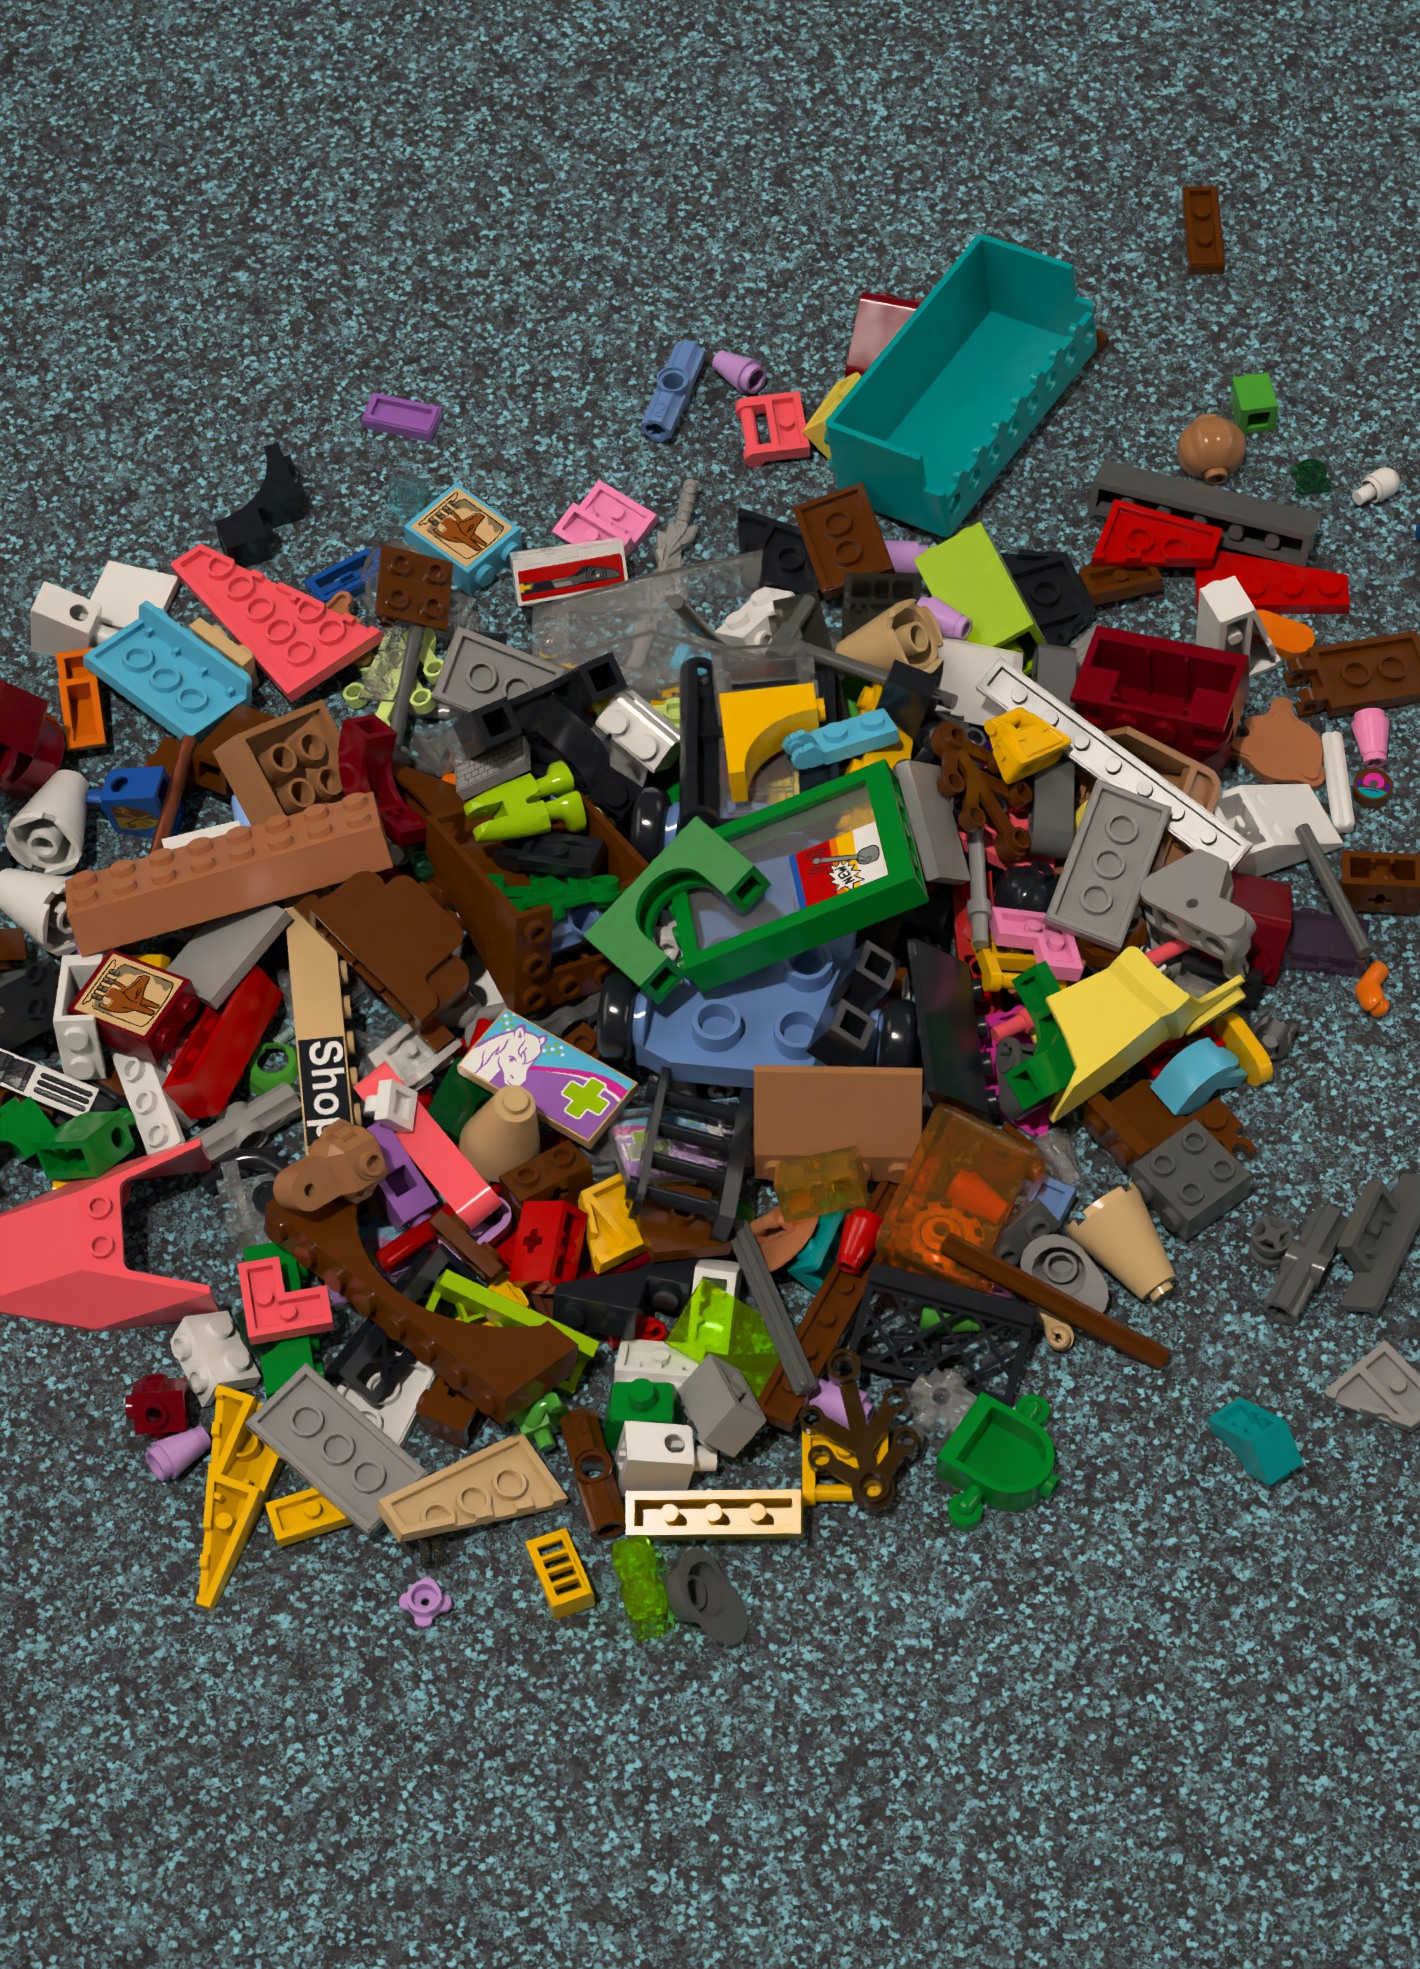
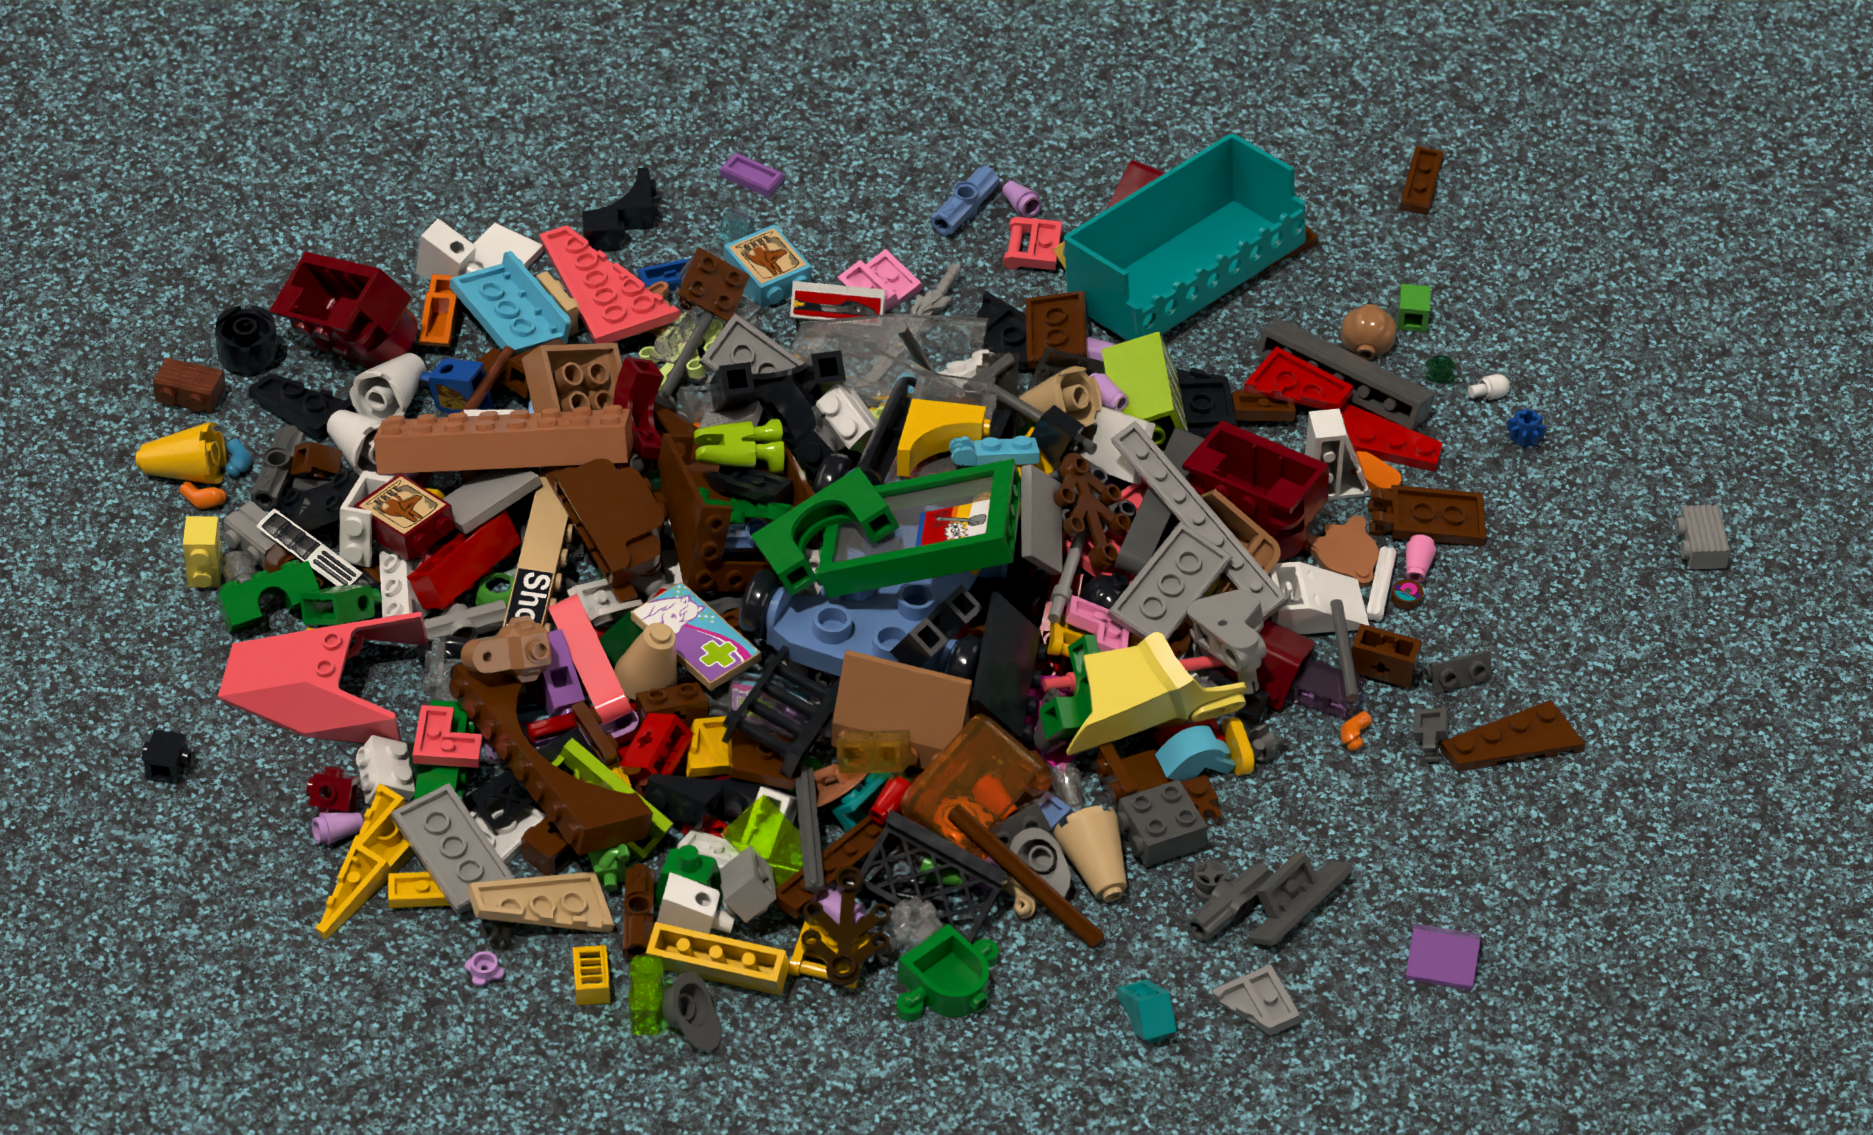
camera: 10 degrees right, 10 degrees down
(393, 1106) = (571, 621): white tile -> none
(1024, 743) = (1133, 486): yellow piece -> none

